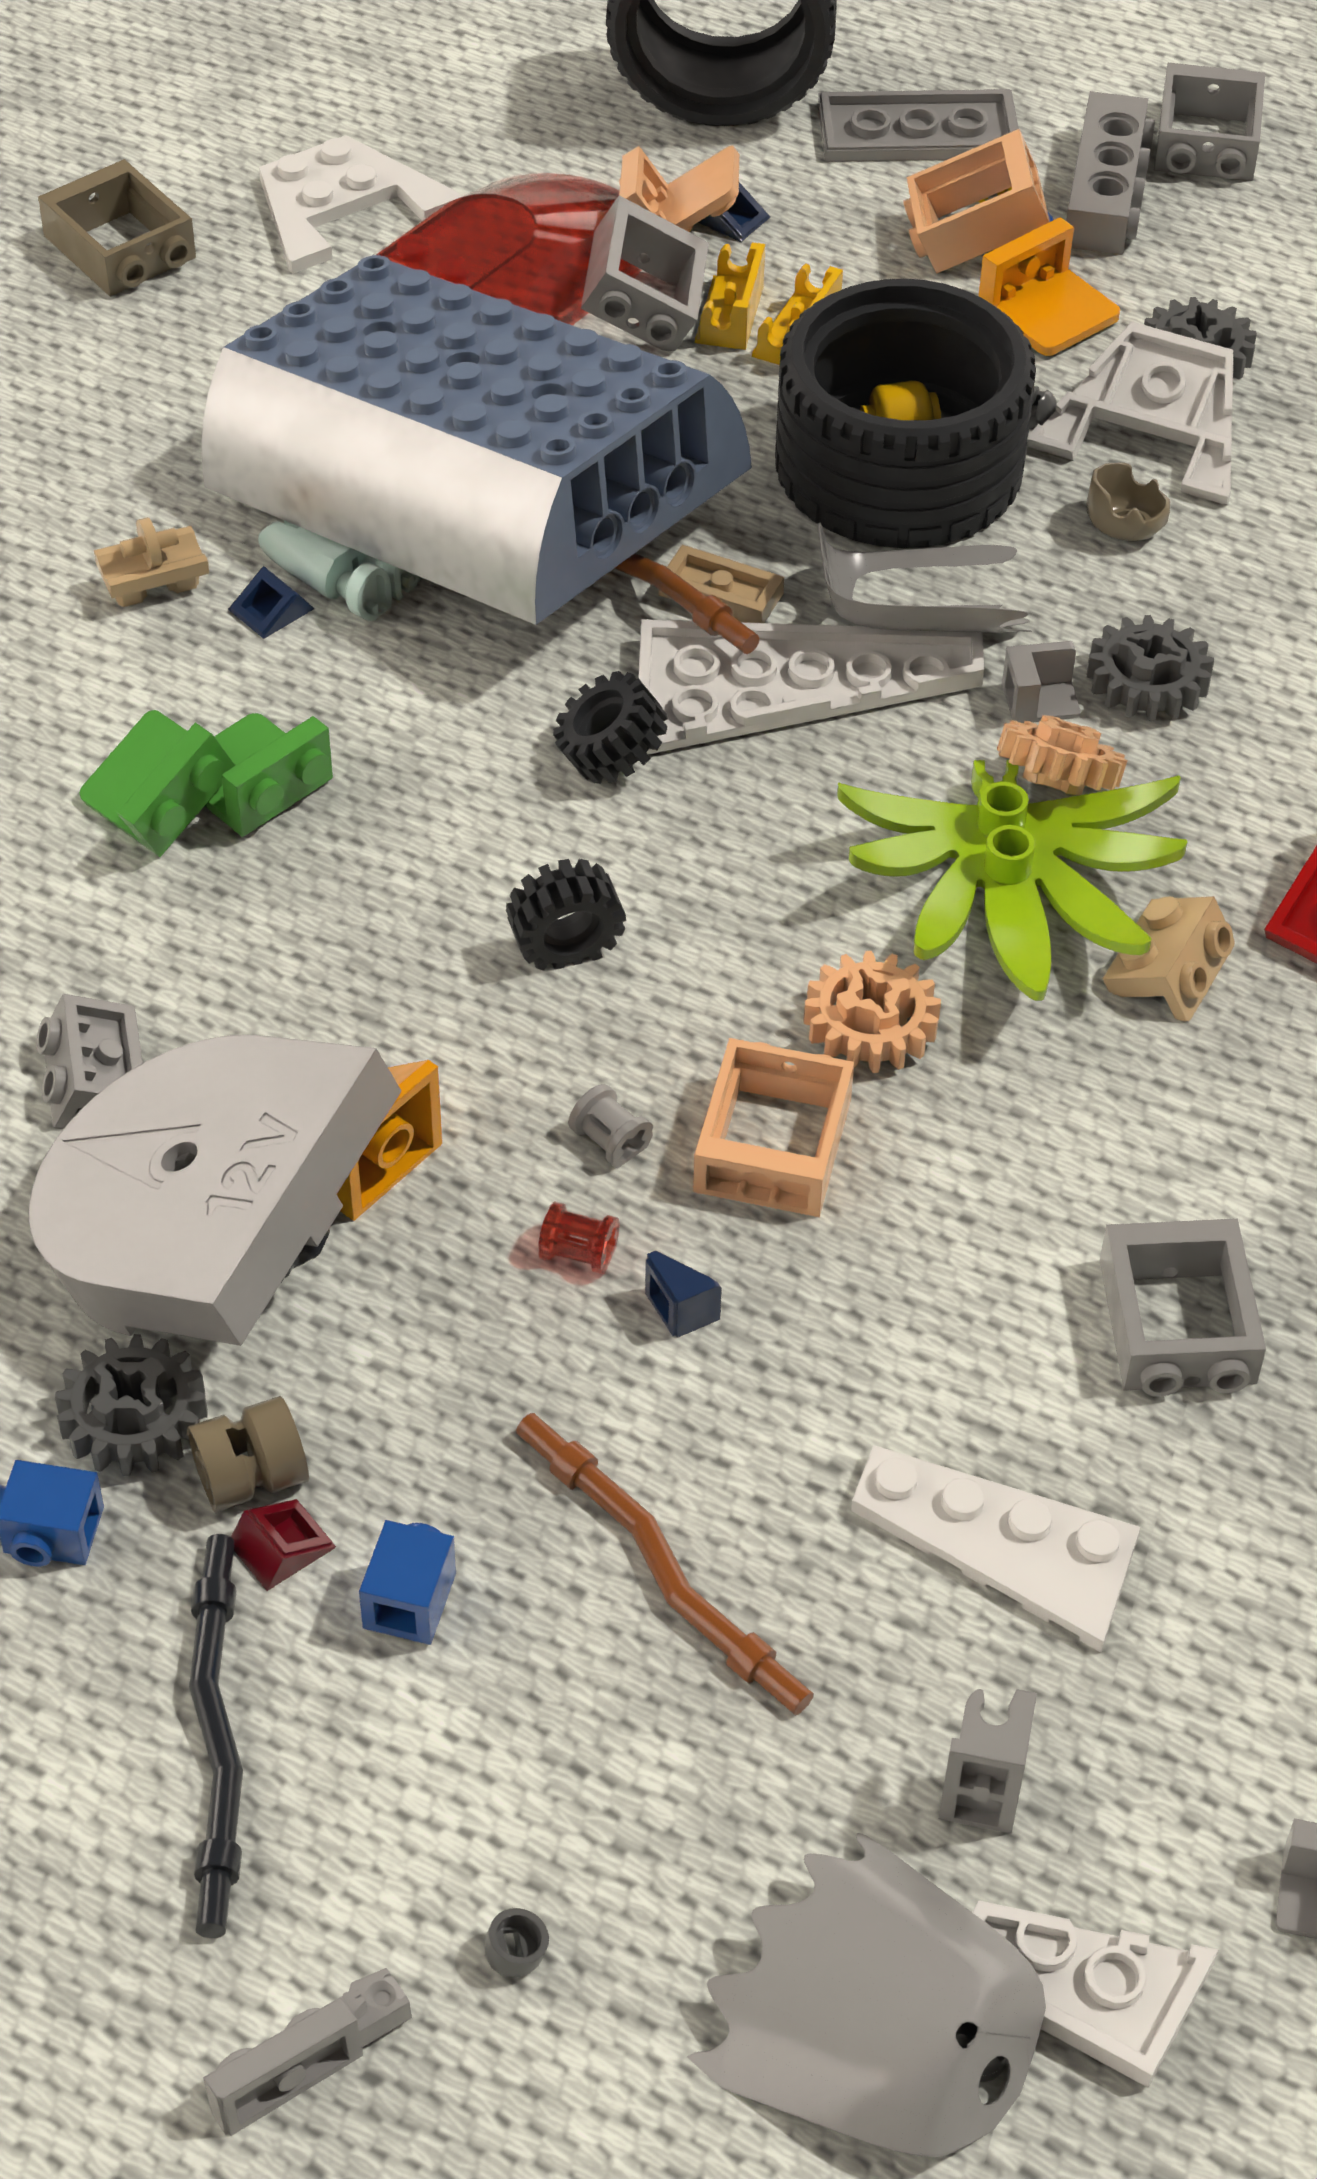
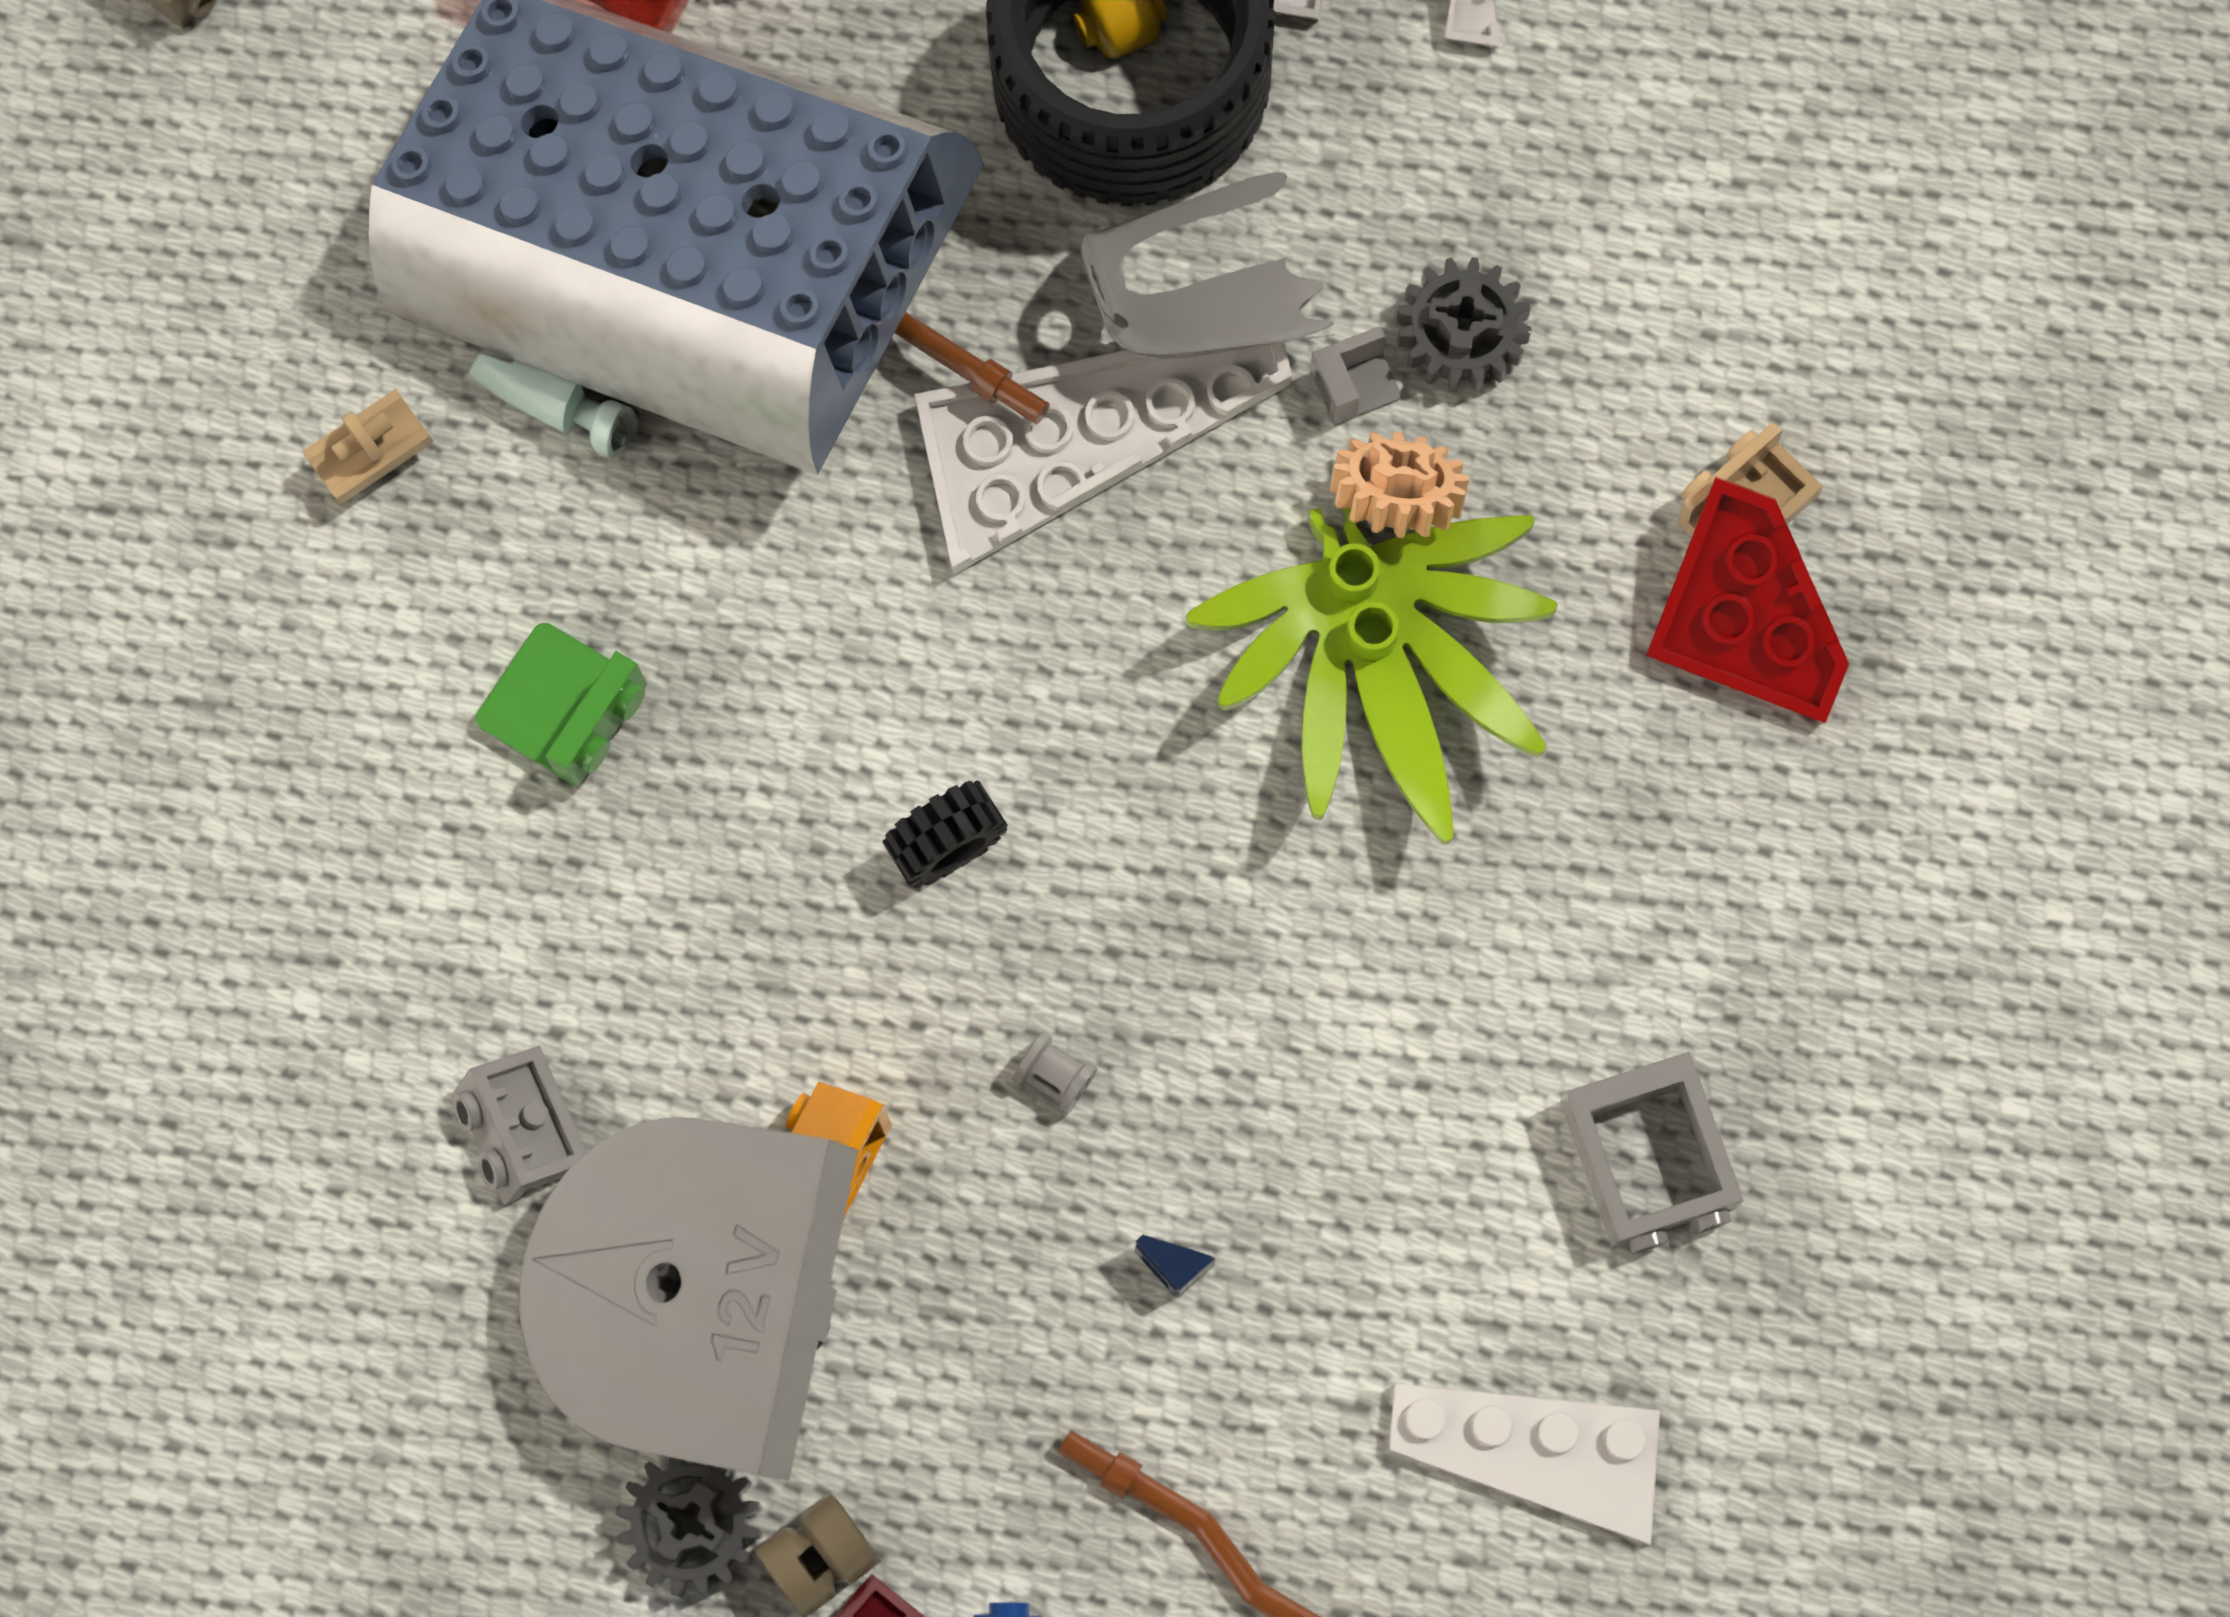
camera: 10 degrees left, 25 degrees up
(157, 780) = (470, 752): bright green bracket -> none
(268, 604) = (508, 458): dark blue slope -> none
(556, 1237) = (1058, 1217): clear red bush -> none
(610, 727) = (895, 558): black tyre -> none
(743, 588) = (987, 315): tan plate -> none
(761, 1173) = (1216, 1101): light nougat window -> none
(870, 1009) = (1256, 882): light nougat gear -> none
(1124, 506) = (1384, 73): dark tan hair -> none
(1184, 955) = (1567, 699): tan bracket -> none

